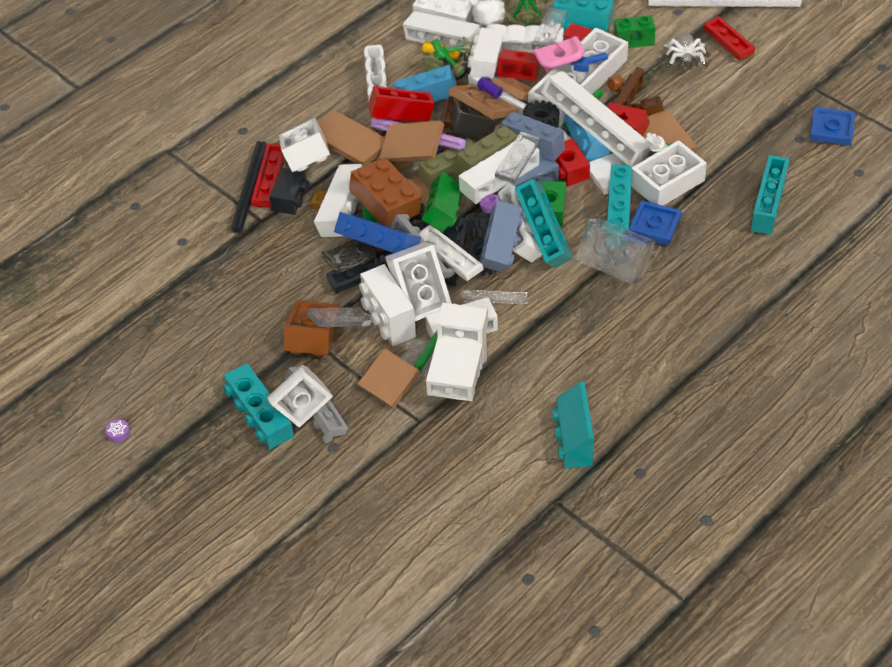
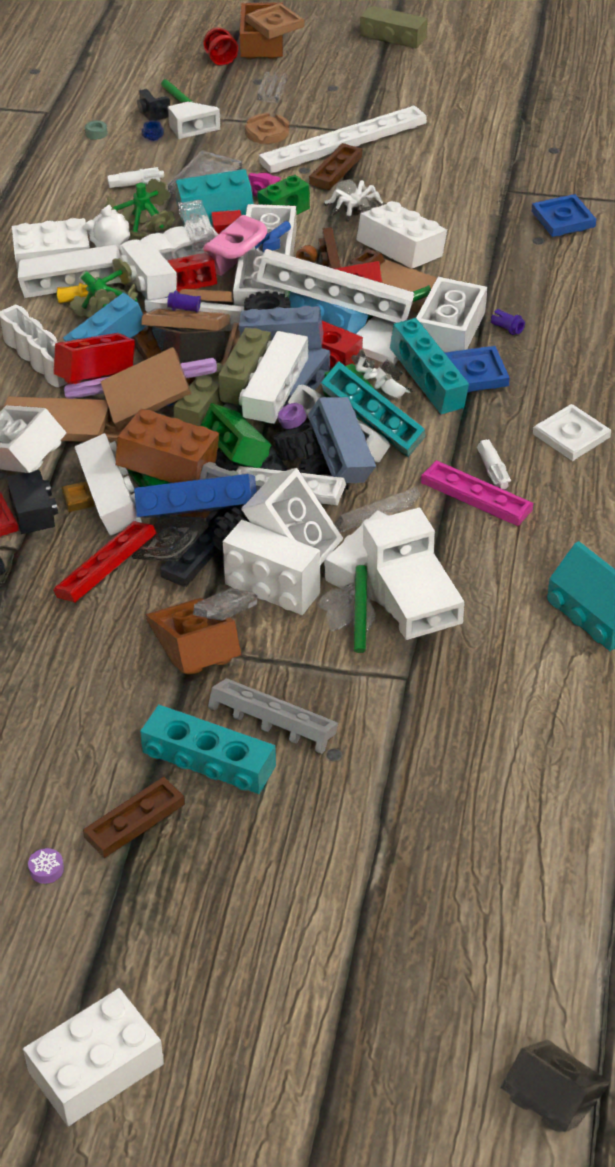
camera: 35 degrees left, 5 degrees down
(51, 553) = (93, 1056): none -> white brick
(185, 426) = (133, 817): none -> reddish brown plate
(300, 252) = (104, 561): none -> red tile
(300, 396) = (264, 705): white brick -> none
(389, 378) = (338, 646): medium nougat tile -> none
(517, 157) = (293, 351): clear tile -> none
(575, 315) = (477, 493): none -> dark pink tile
(579, 200) = (386, 376): none -> animal
(602, 302) = (495, 467): none -> white piece
(614, 250) = (472, 407): clear brick -> none
(633, 11) = (261, 181): none -> dark pink bracket
(655, 142) = (421, 287): white axle -> none
(682, 300) = (572, 432): none -> white tile
(691, 94) = (401, 234): none -> white brick
(696, 18) = (335, 166): none -> reddish brown plate
(713, 198) = (513, 324): none -> dark purple pin
(729, 38) = (385, 173): red plate -> none
(770, 194) = (570, 296): teal brick -> none

